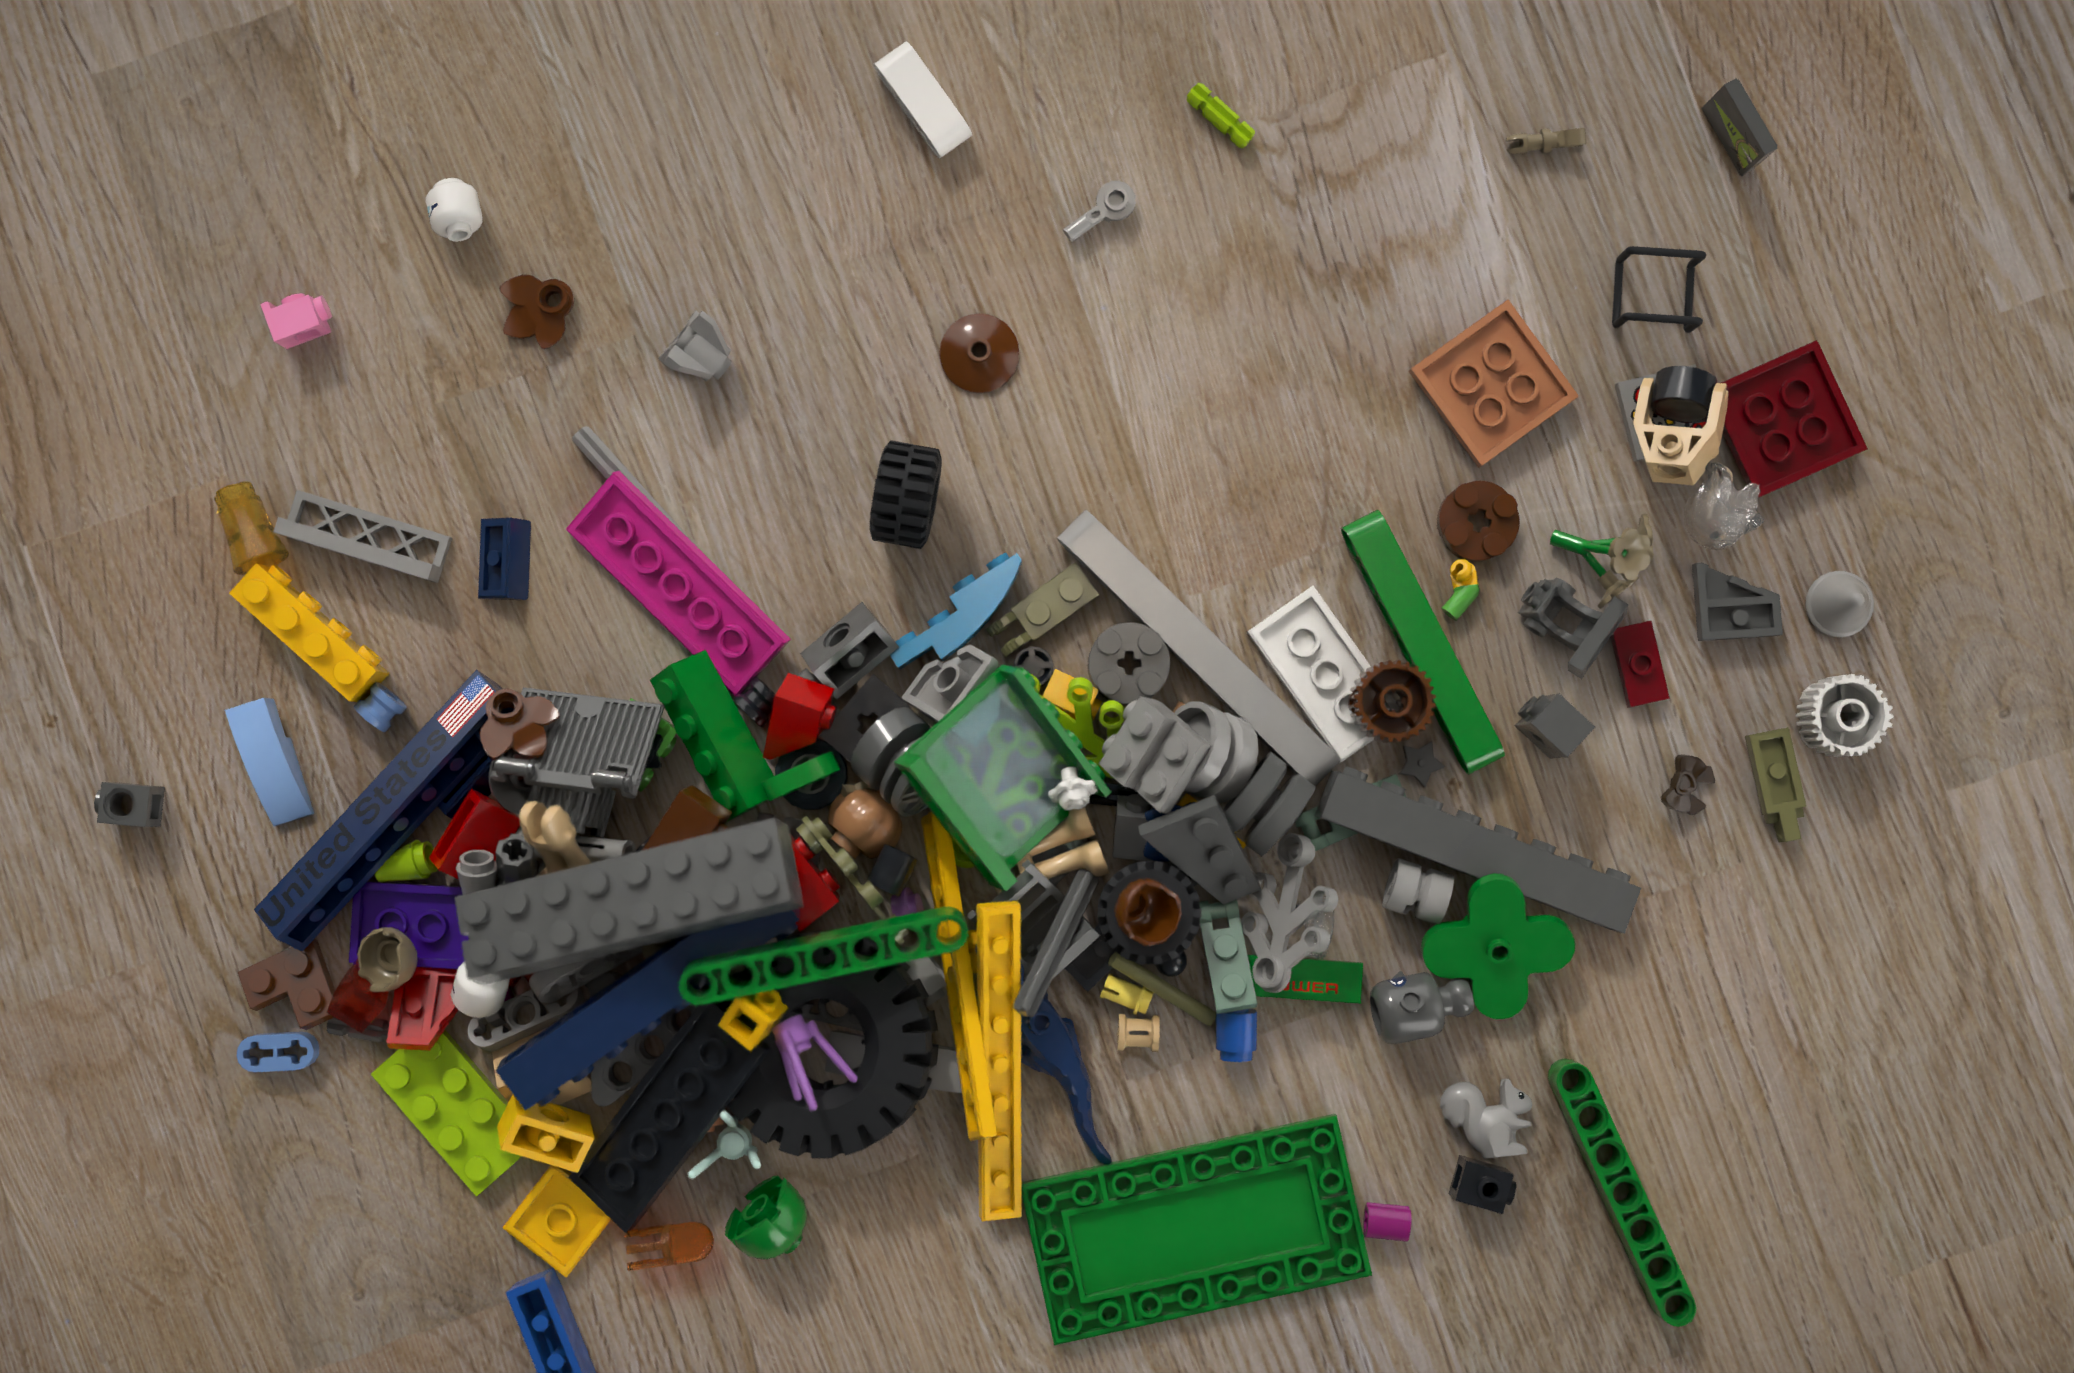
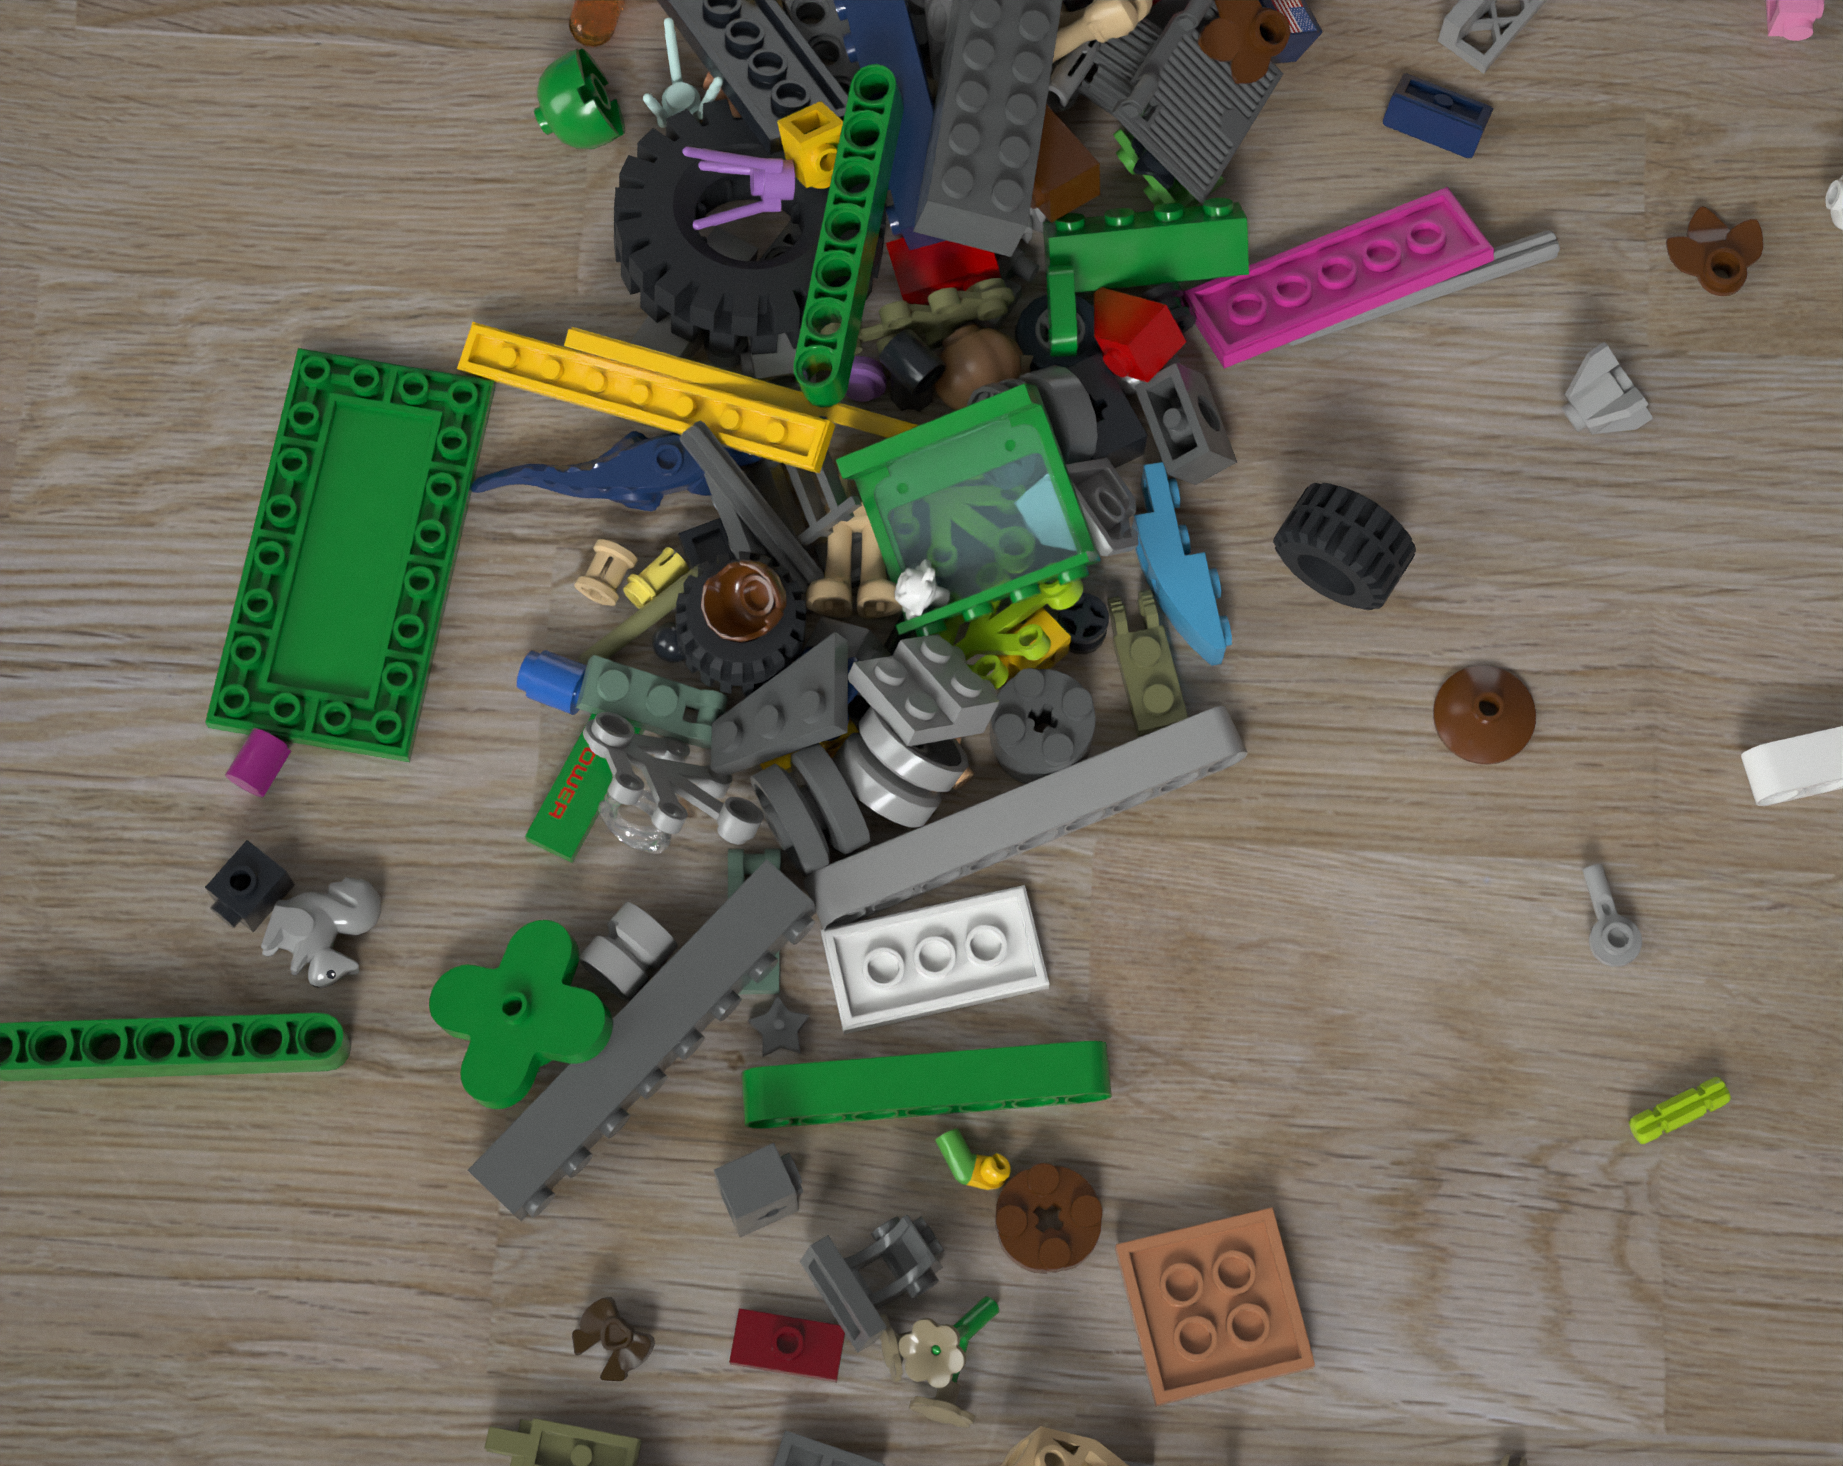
camera: 110 degrees right, 15 degrees down
(1414, 701) = (881, 978): reddish brown brick -> none
(1416, 1007) = (492, 891): dark grey piece -> none

